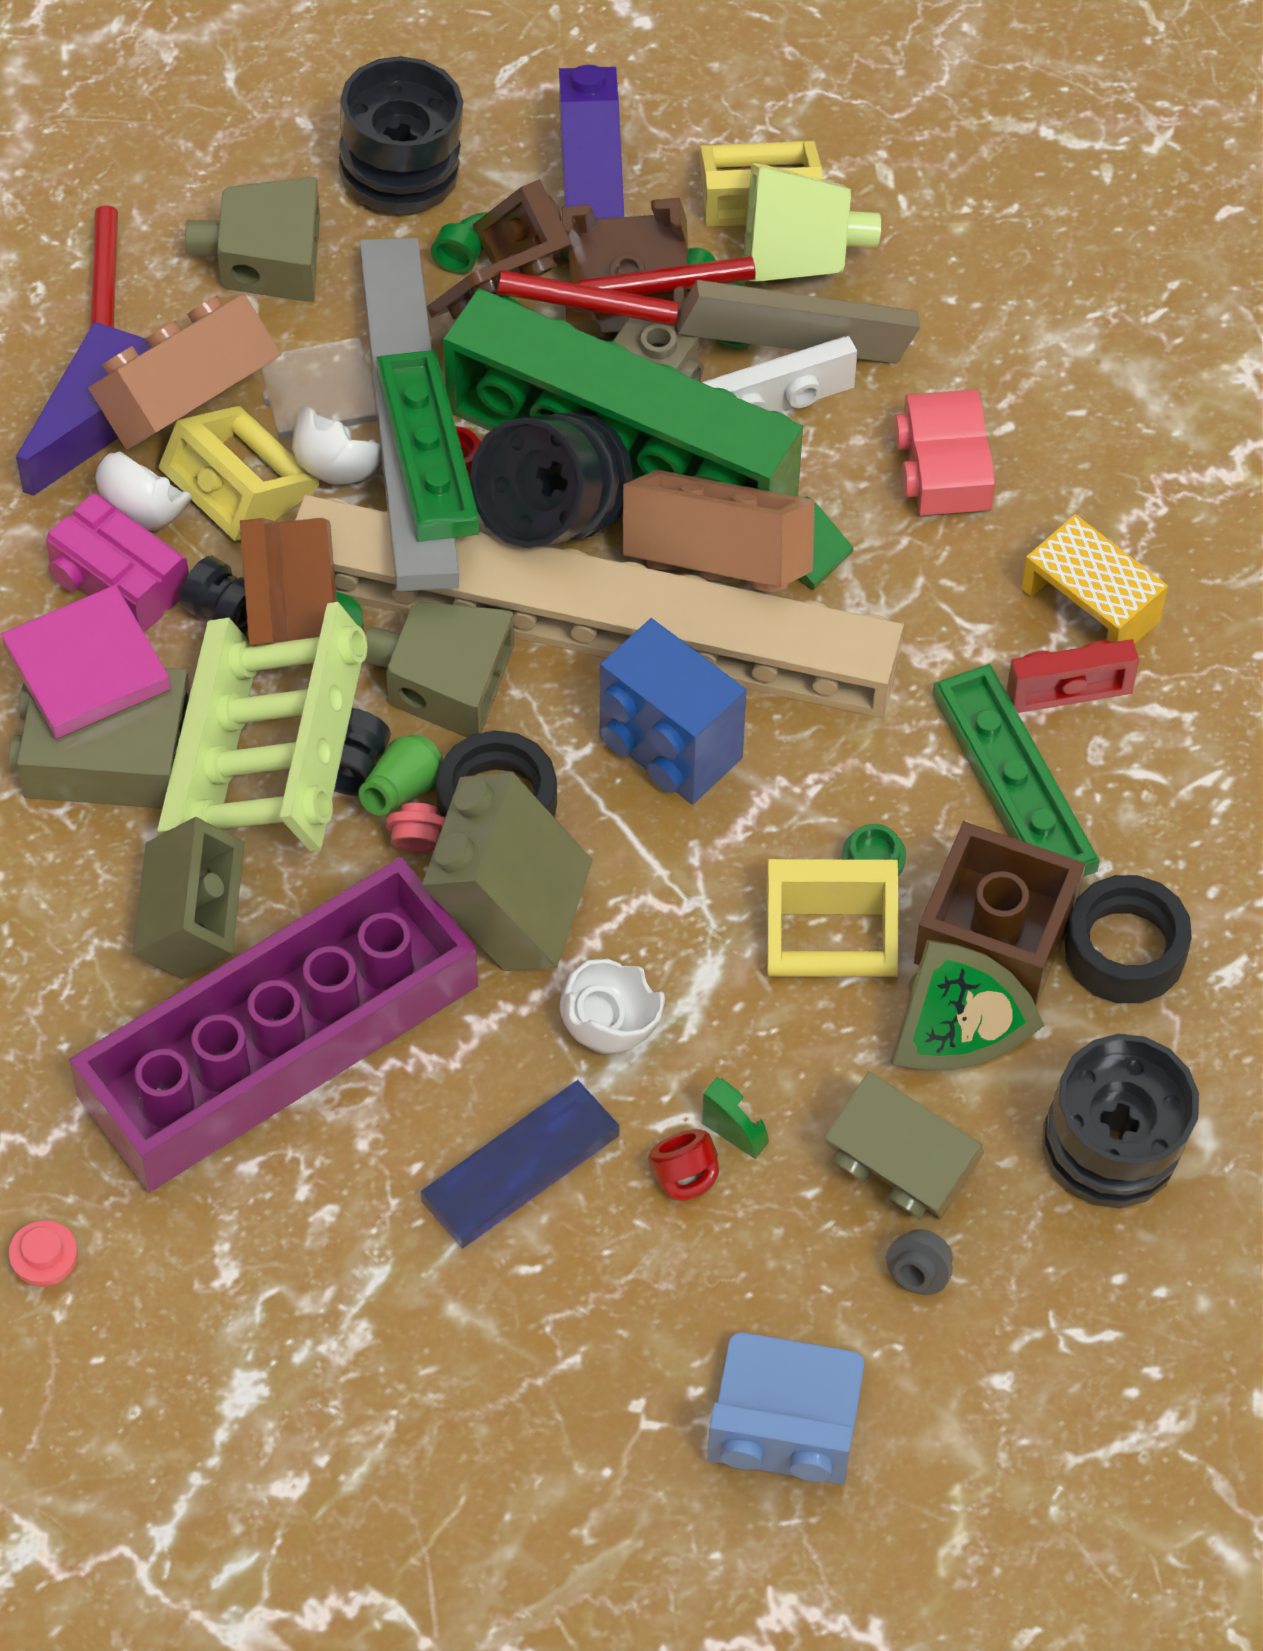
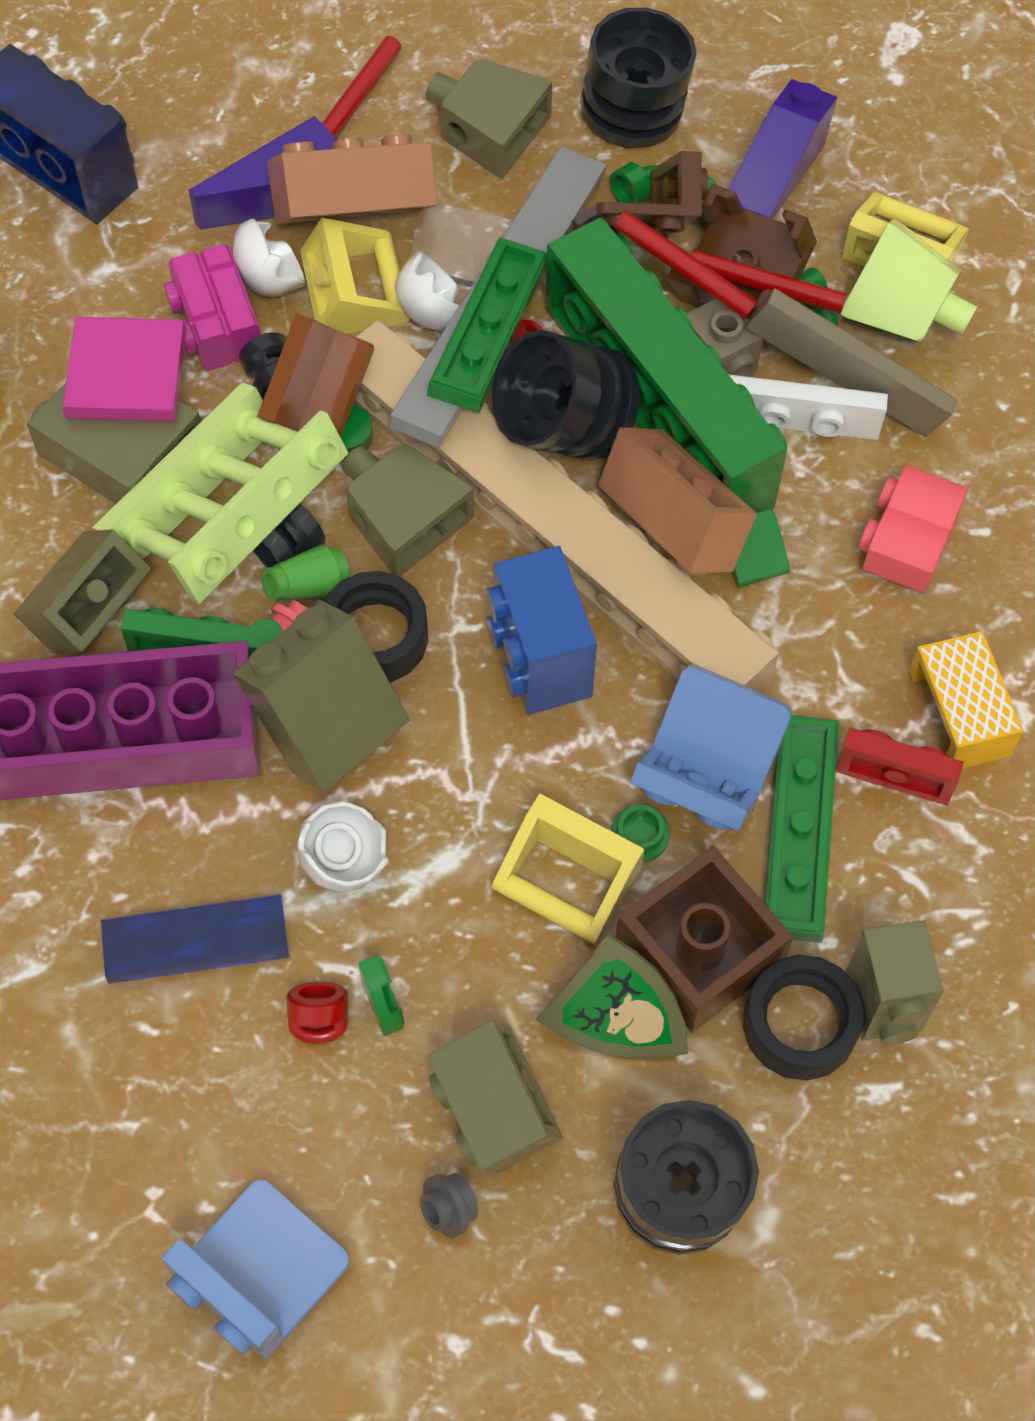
camera: 30 degrees right, 5 degrees up
(291, 897) = (162, 629): none -> green plate
(898, 739) = (713, 748): none -> medium blue bracket
(1197, 856) = (895, 980): none -> olive brick

